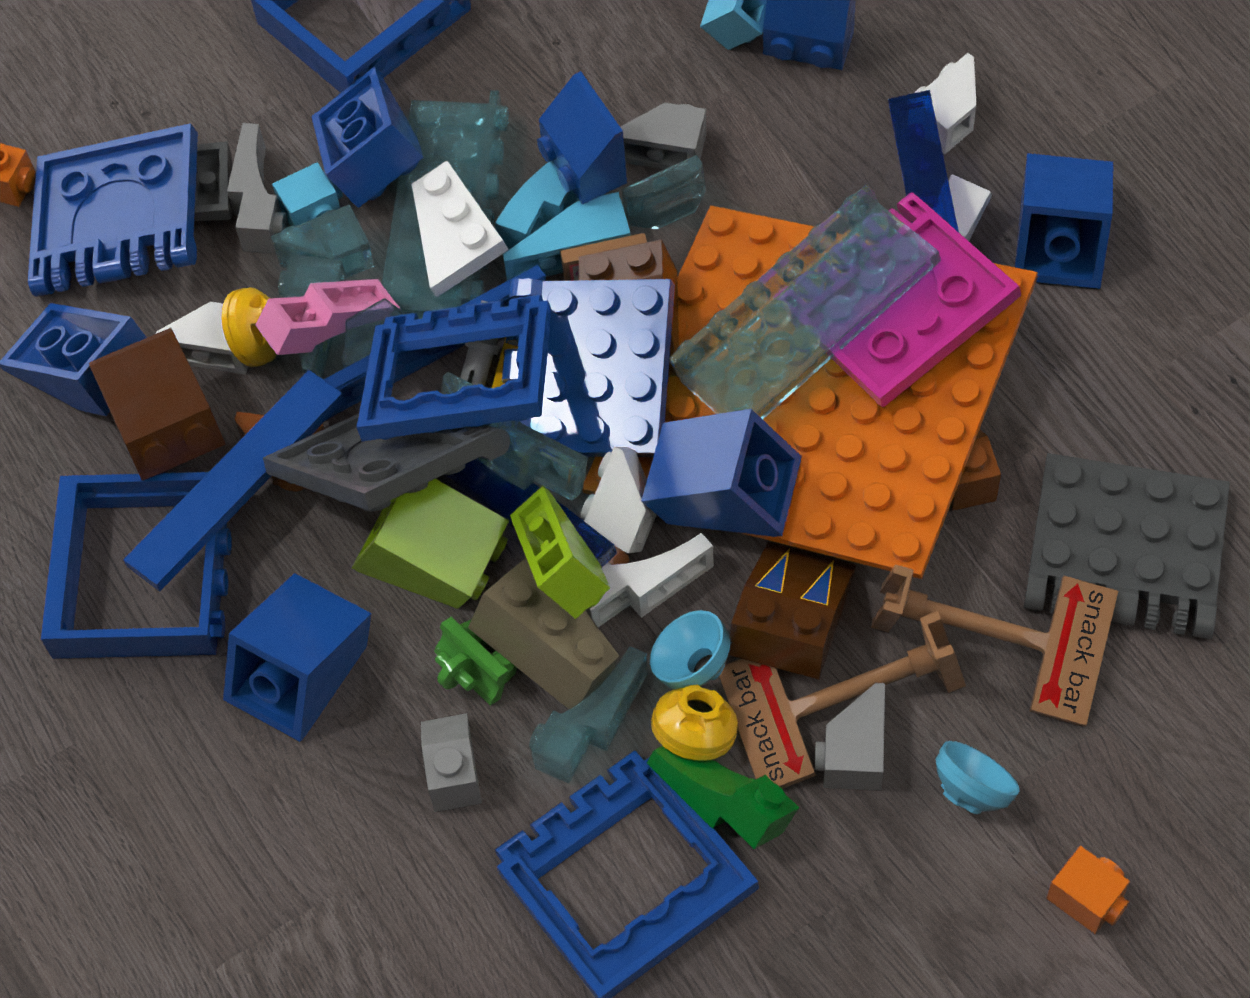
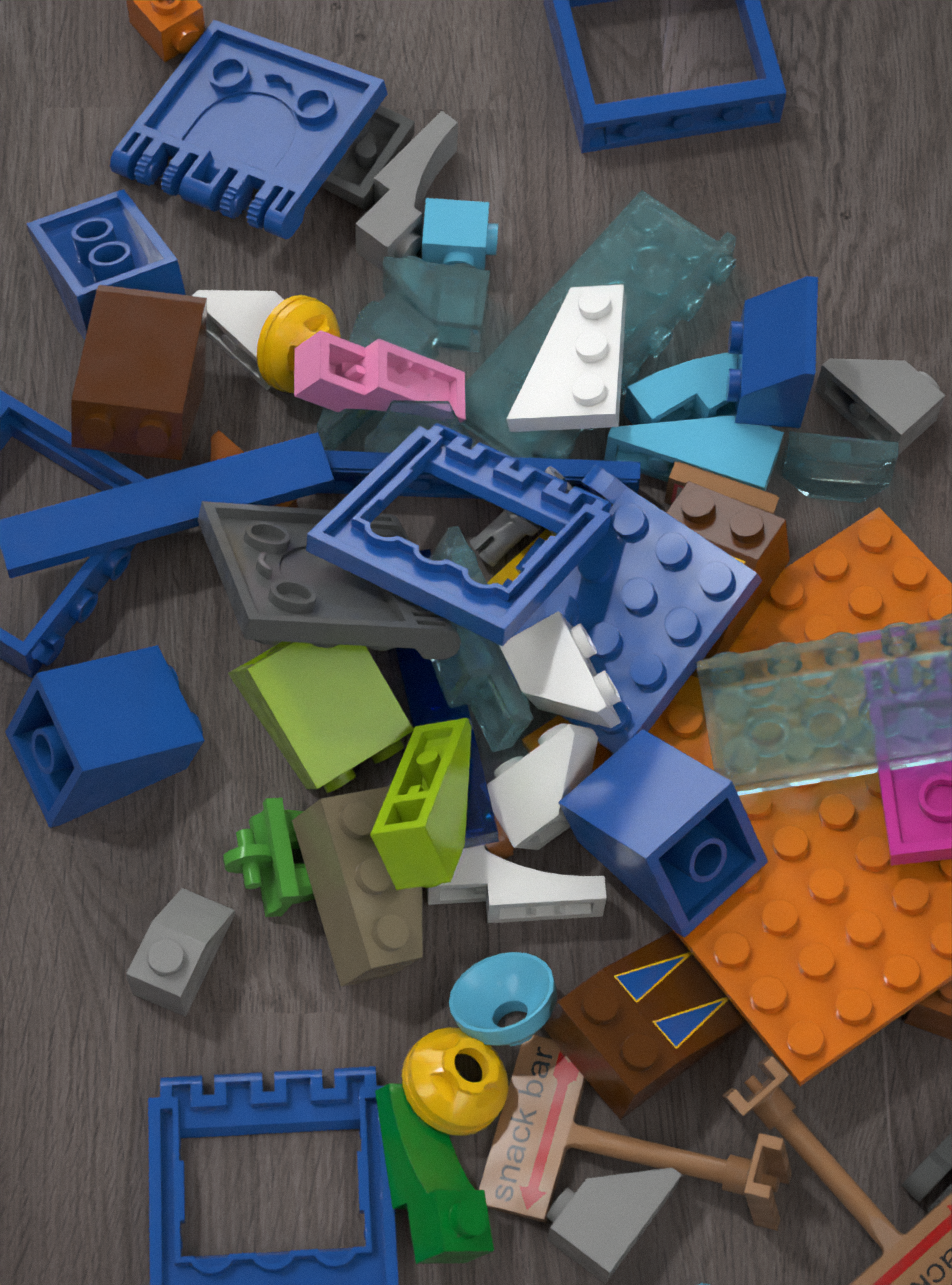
camera: 25 degrees right, 5 degrees up
(365, 139) = (558, 206): blue slope -> none
(583, 422) = (557, 673): none -> white slope
(595, 720) = (310, 1007): clear light blue slope -> none

